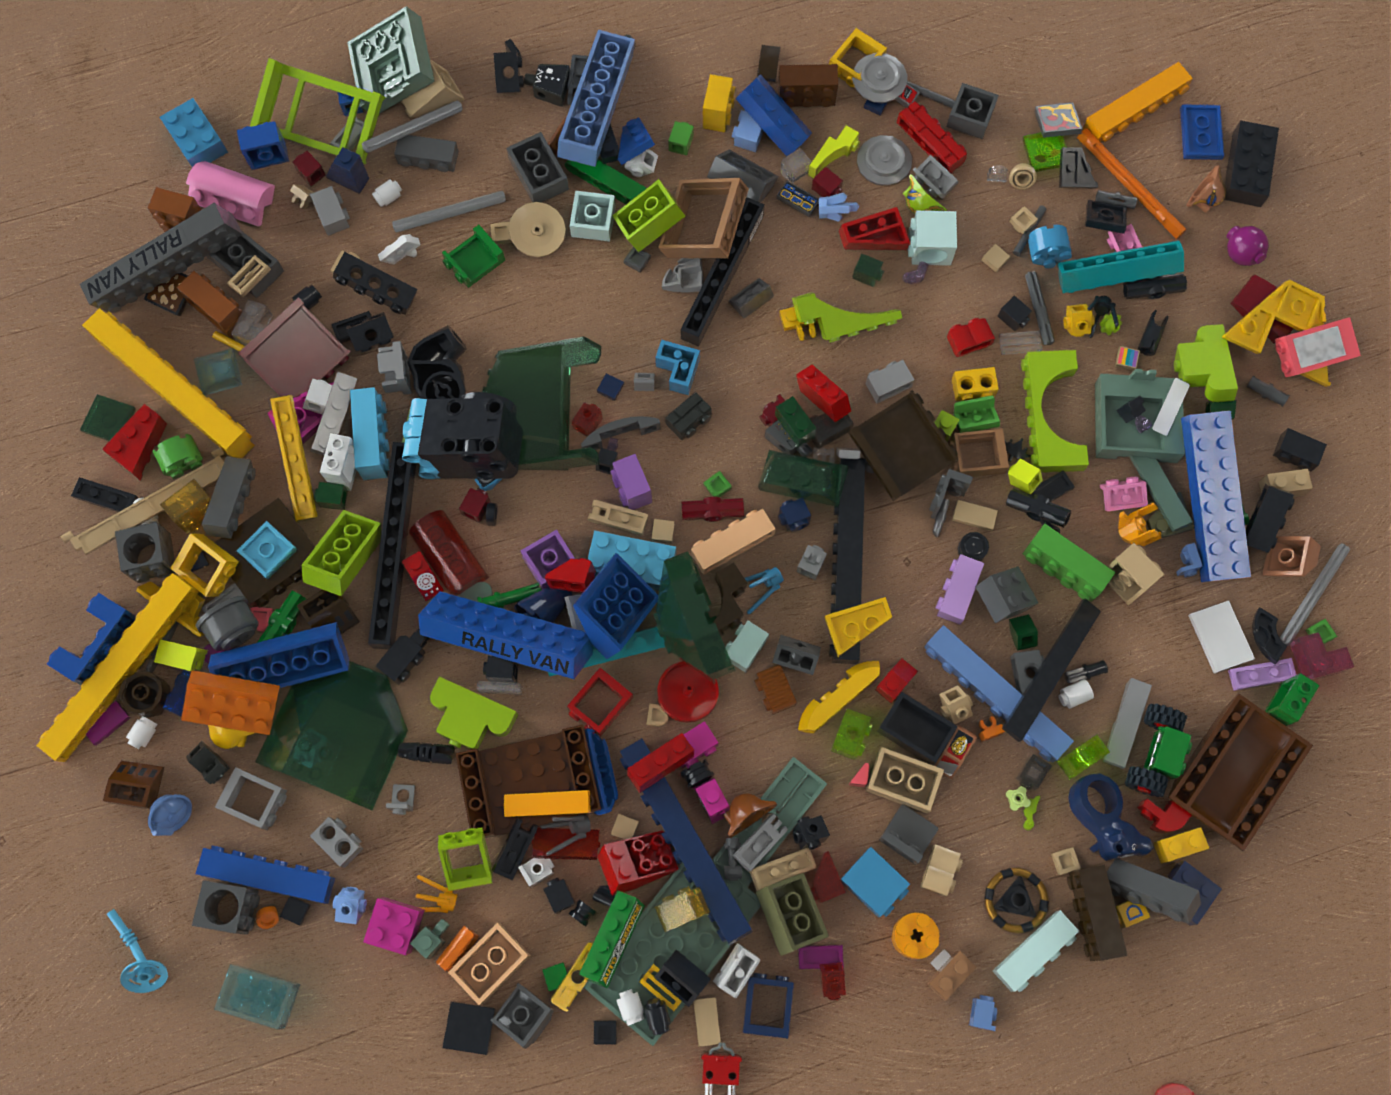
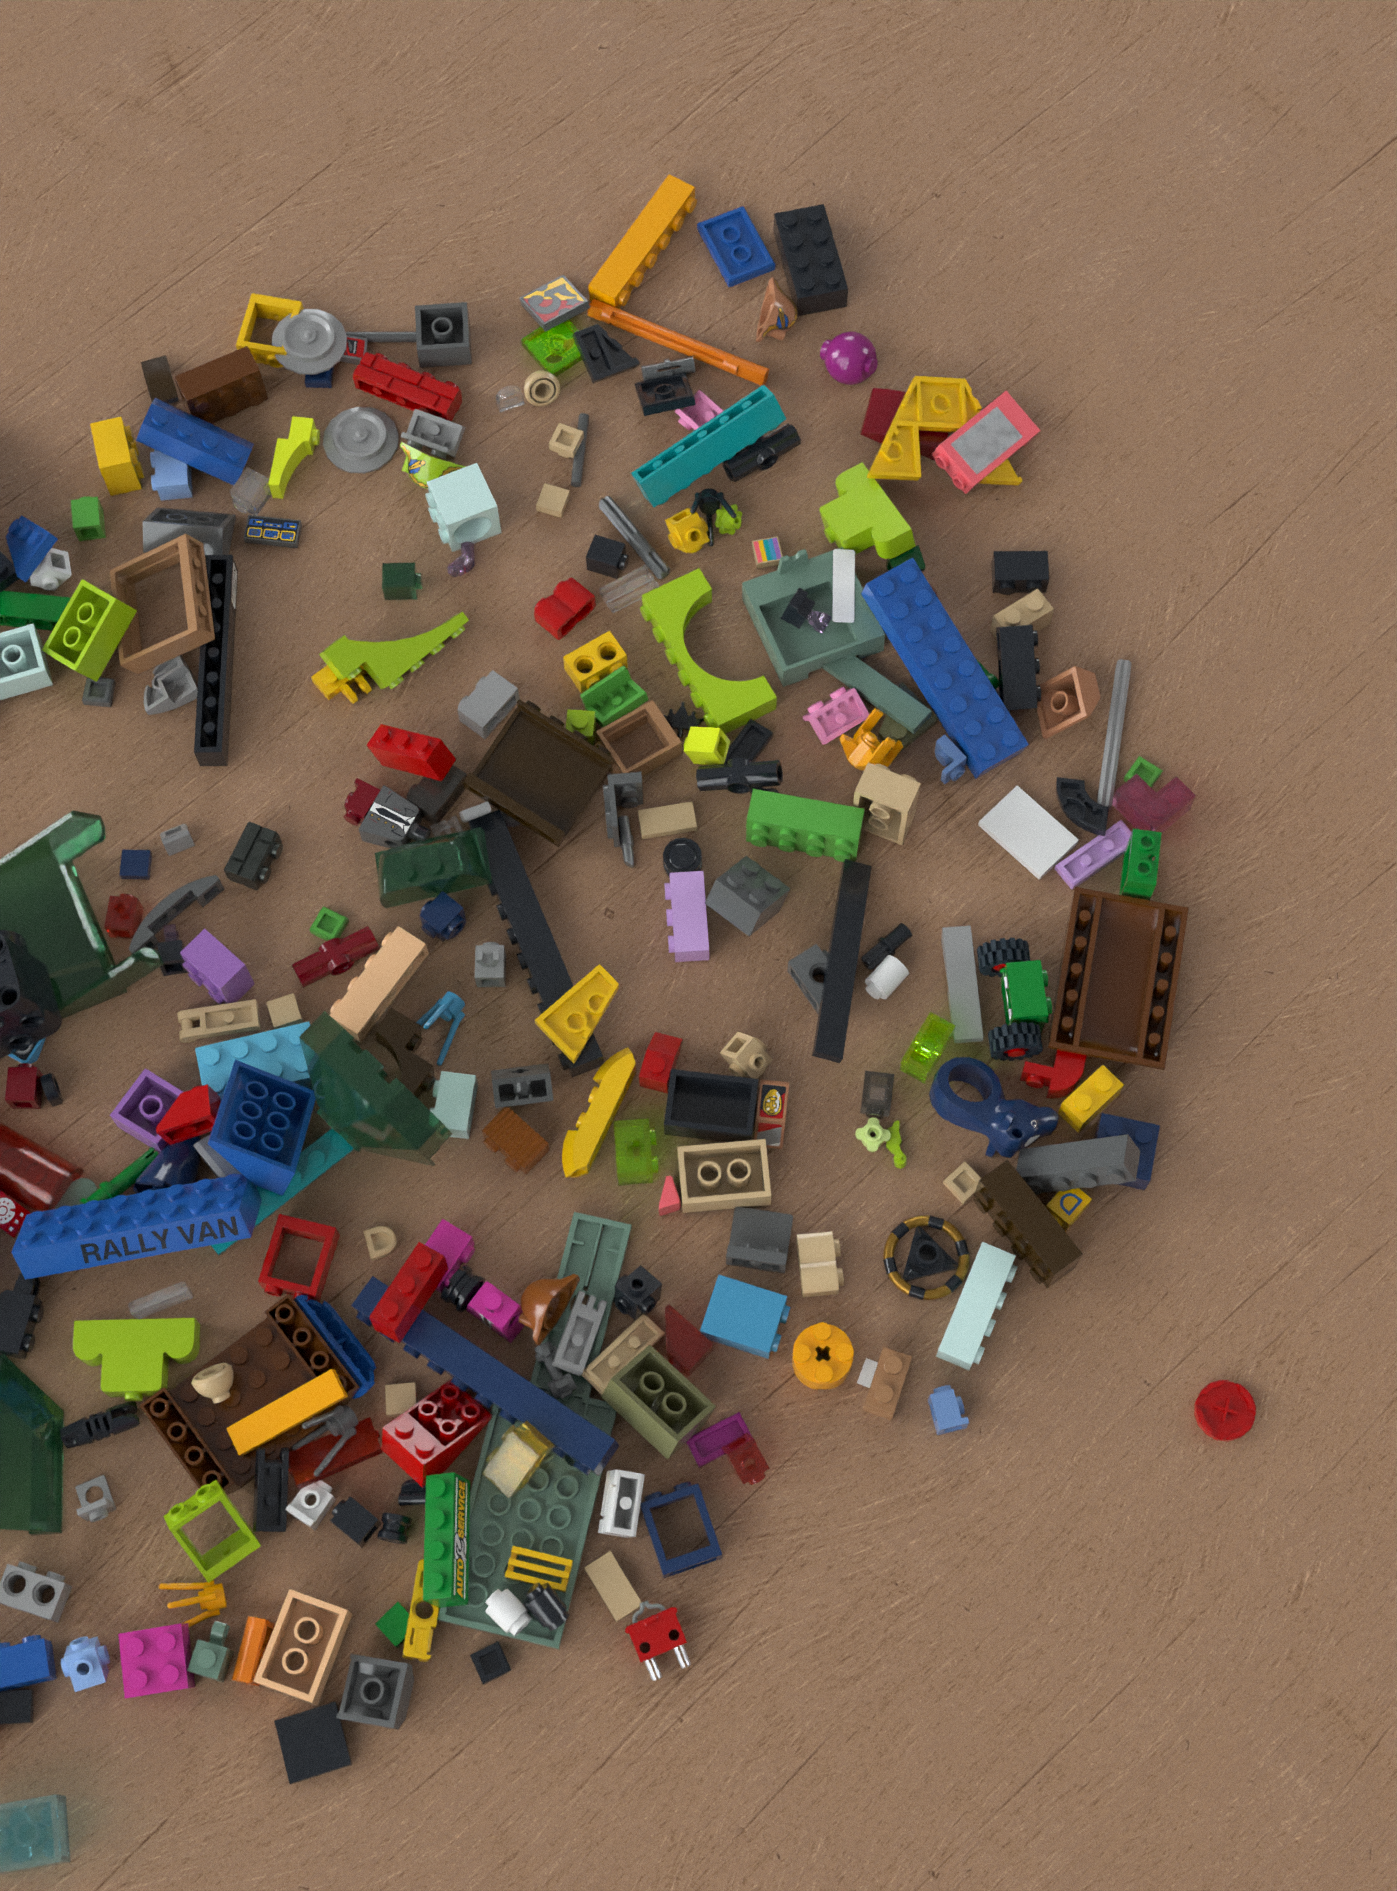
camera: 25 degrees left, 5 degrees down
(500, 670) = (151, 1274): black brick -> none
(509, 760) = (214, 1382): none -> tan brick
(681, 361) = (211, 792): dark azure brick -> none
(682, 978) = (556, 1543): black brick -> none
(686, 693) = (405, 1196): red piece -> none
(752, 297) = (268, 677): flat silver slope -> none
(795, 421) = (391, 801): dark green brick -> none
(827, 183) = (302, 499): dark red brick -> none
(834, 206) = (322, 522): light blue rock -> none
(875, 232) = (389, 531): red wedge -> none
(991, 731) = (804, 1070): orange tile -> none
(994, 691) = (785, 1019): medium blue brick -> none
(1023, 632) = (789, 933): dark green brick -> none
(1049, 246) = (611, 457): dark azure brick -> none
(1152, 336) = (785, 513): black piece -> none
(1267, 391) = (951, 519): dark grey pin -> none

